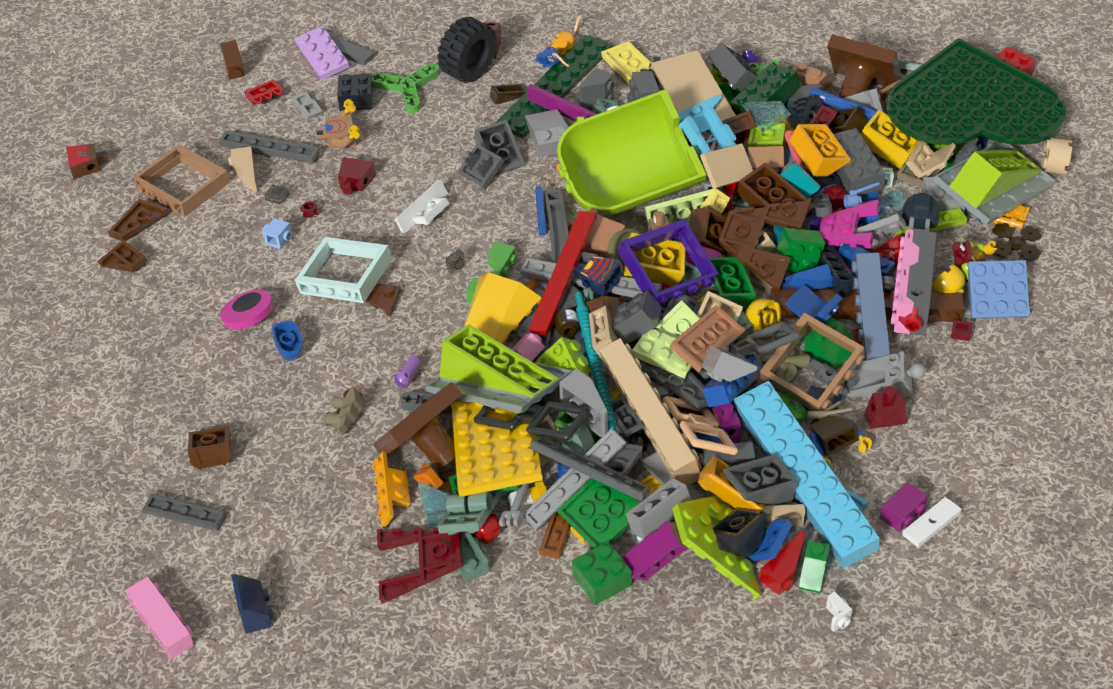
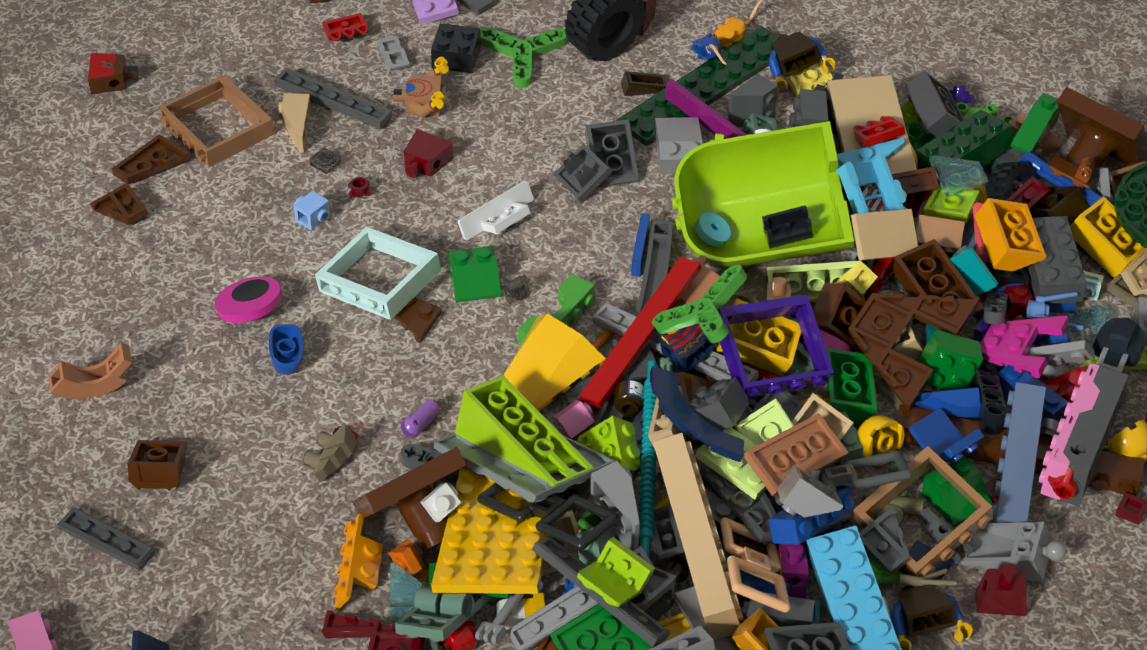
camera: 10 degrees right, 0 degrees up
(135, 396) = (91, 381): none -> nougat arch
(418, 256) = (474, 274): none -> green slope
(446, 427) = (441, 501): none -> white bracket
(593, 188) = (712, 229): none -> medium azure piece
(600, 452) = (616, 574): none -> lime bracket
(609, 322) = (689, 422): none -> dark blue tile
(611, 244) = (705, 309): none -> bright green piece
(619, 49) = (794, 54): none -> dark brown torso
(649, 176) = (787, 226): none -> black hinge
(700, 93) = (878, 132): none -> red plate
(792, 389) = (885, 542): none -> dark grey wing
(814, 67) = (1037, 124): none -> green slope
(858, 96) = (1080, 176): none -> dark orange hinge

